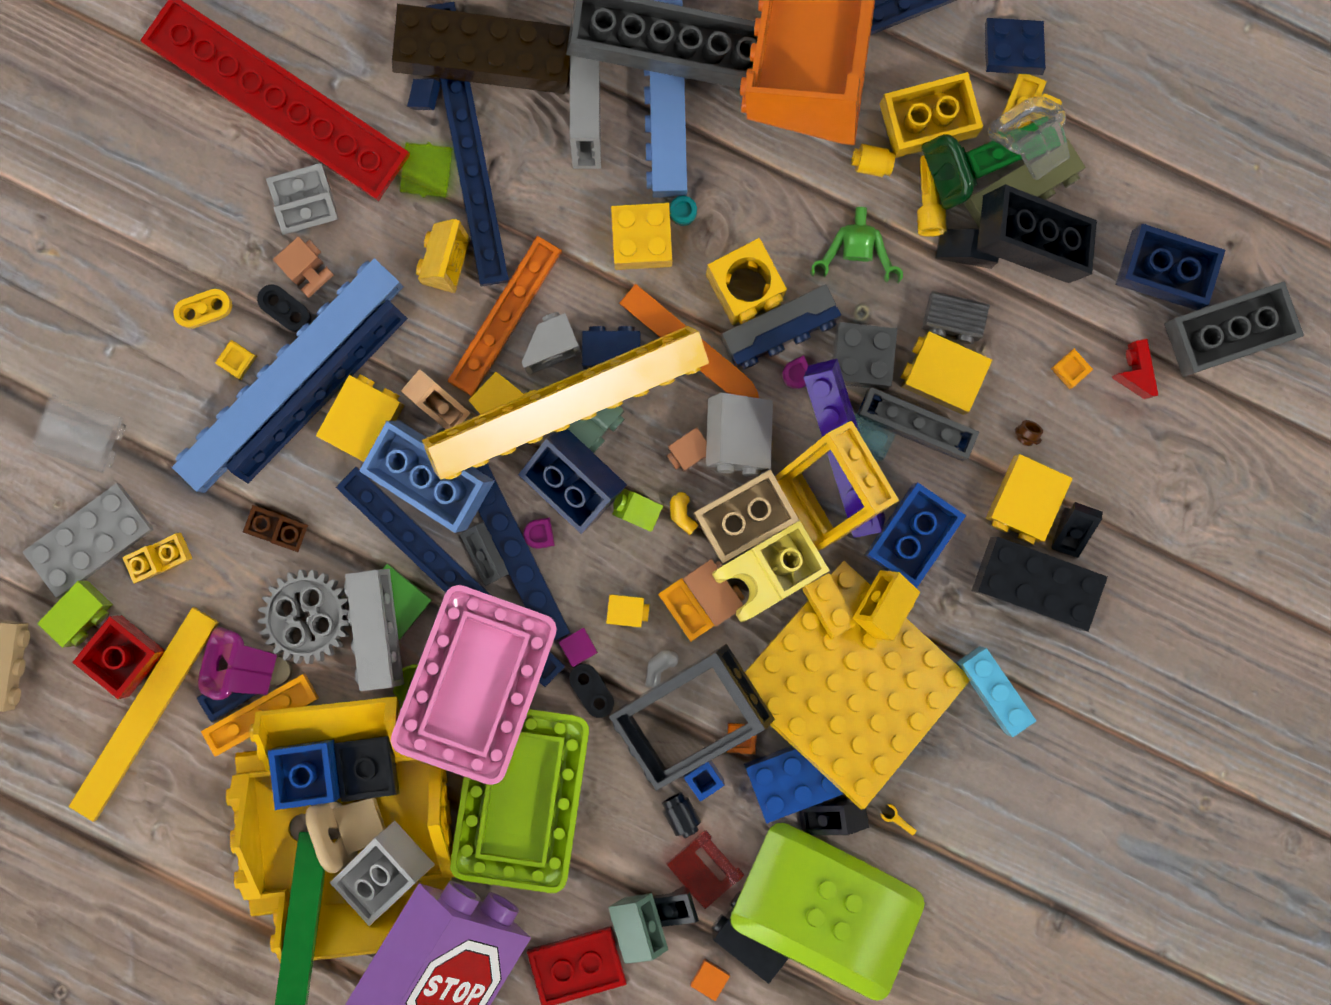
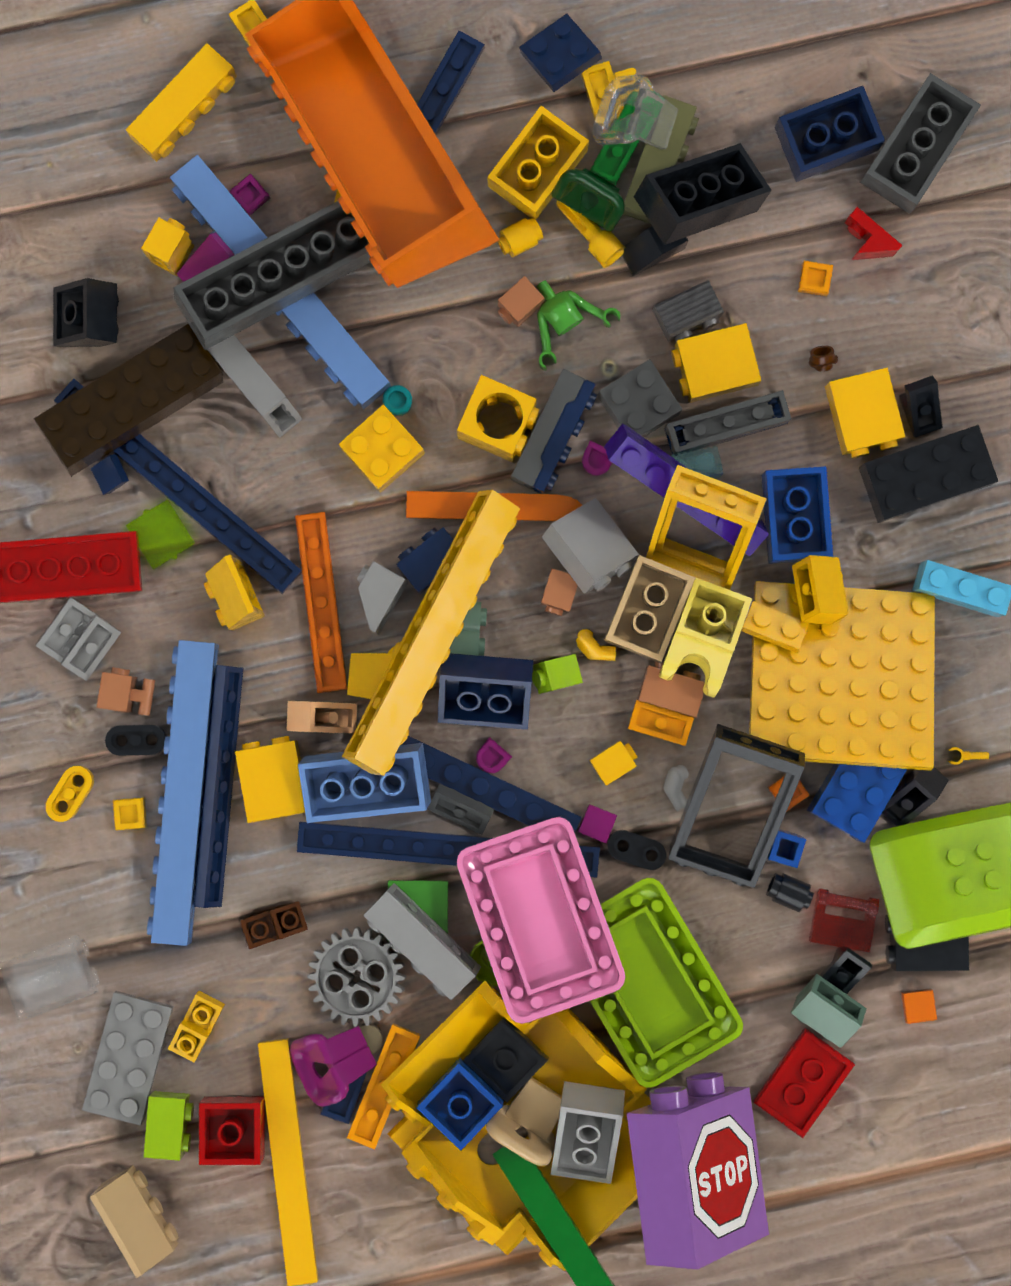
camera: 35 degrees left, 0 degrees up
(833, 209) = (520, 302): none -> nougat brick

